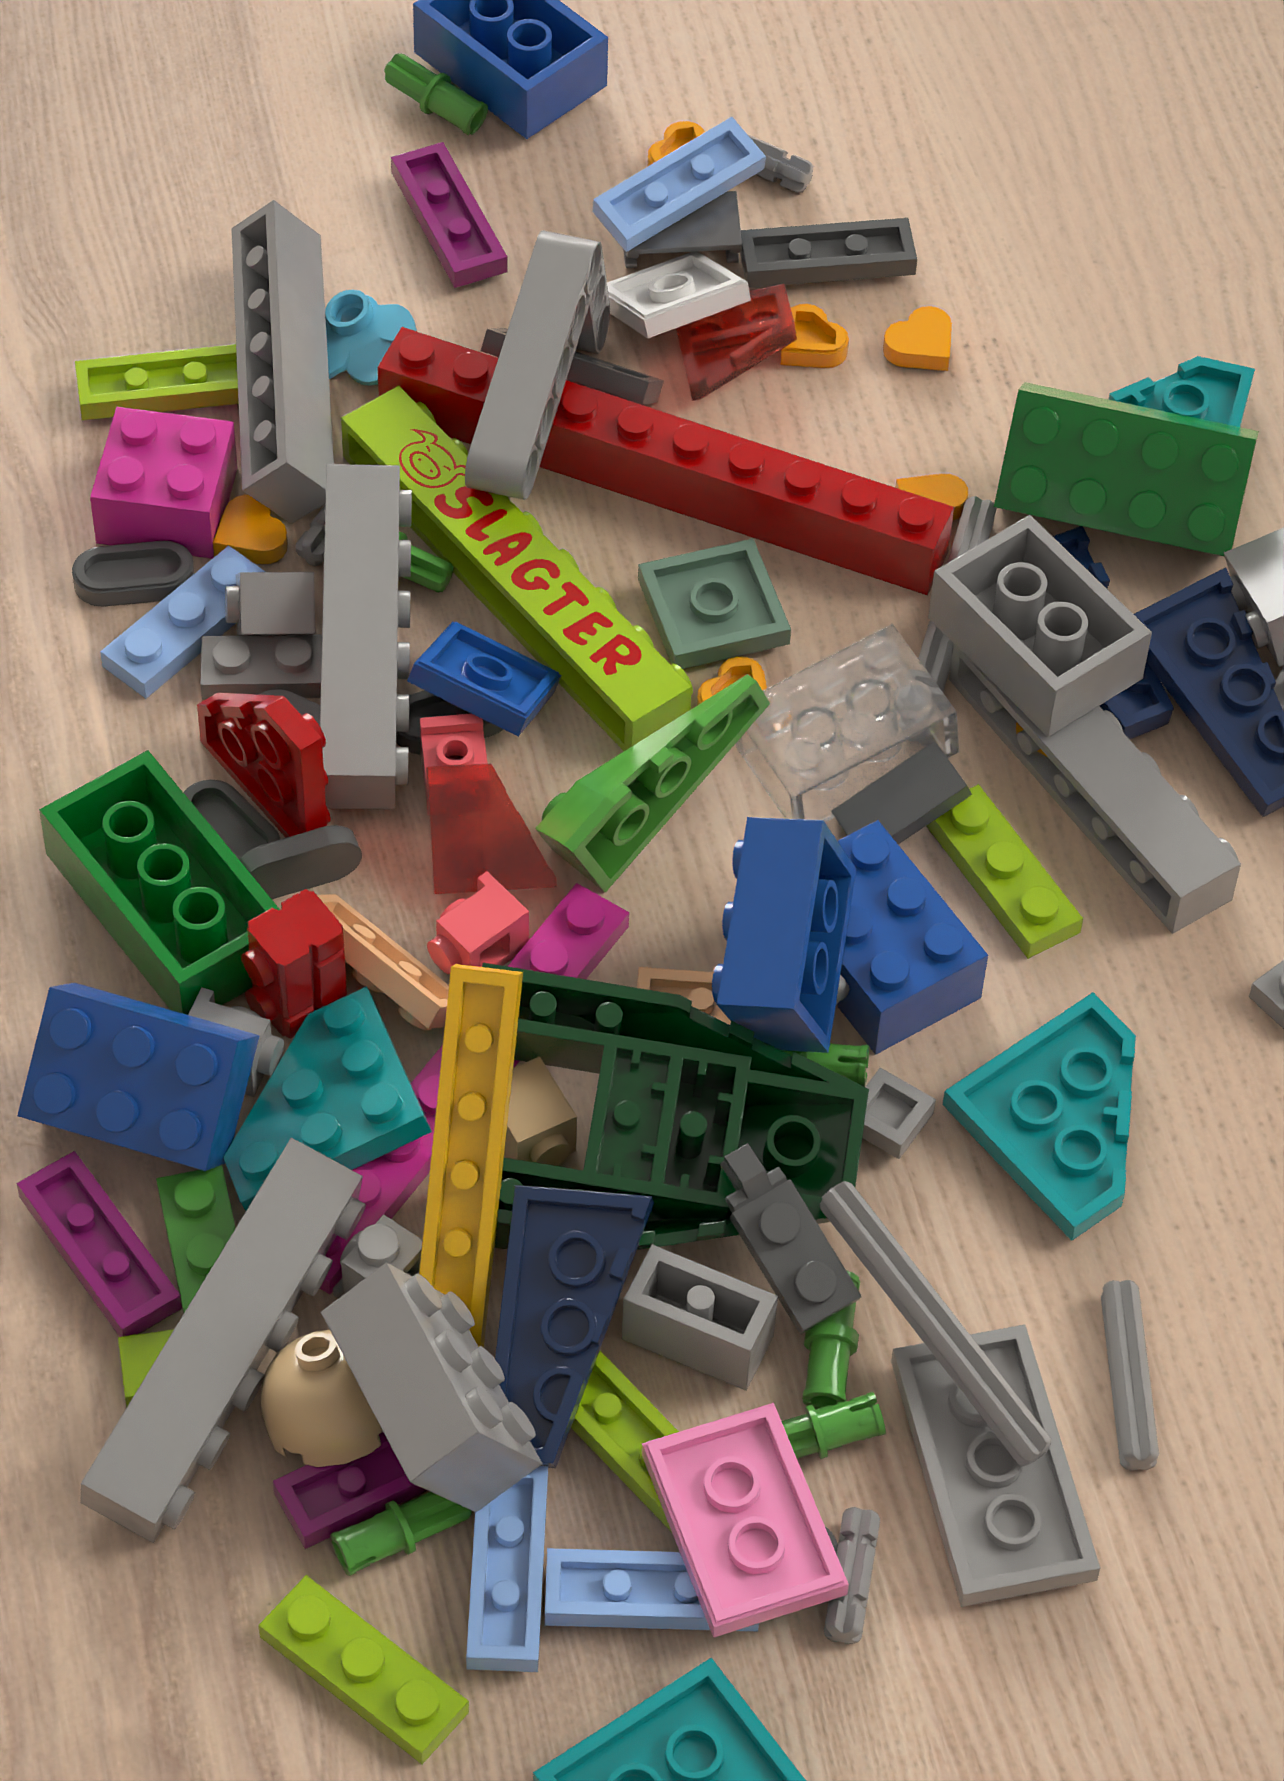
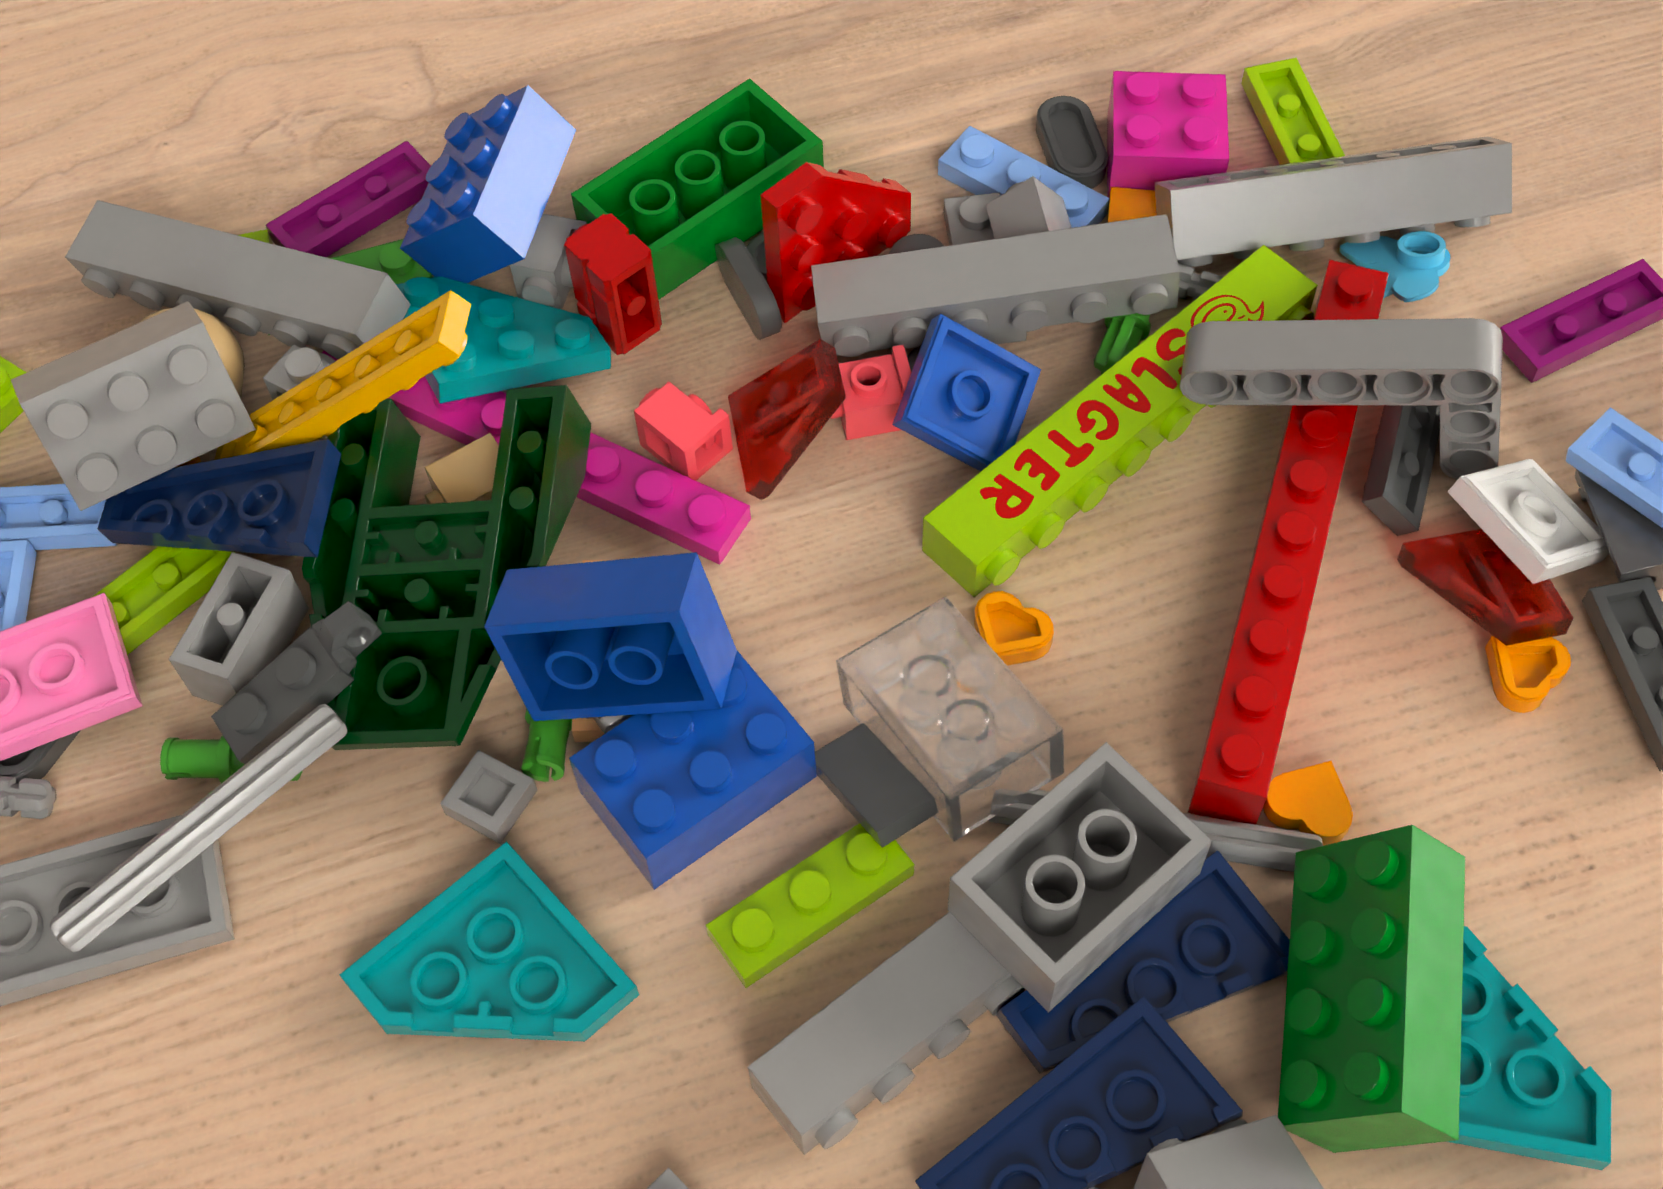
camera: 90 degrees right, 5 degrees up
(390, 968) = (646, 358): light nougat plate -> none
(630, 798) = (818, 519): bright green wedge -> none
(714, 604) = (1117, 596): sand green plate -> none
(834, 1426) = (135, 757): bright green axle -> none
(920, 341) = (1556, 782): light orange tile -> none
(1129, 1375) = (180, 1044): light grey axle -> none

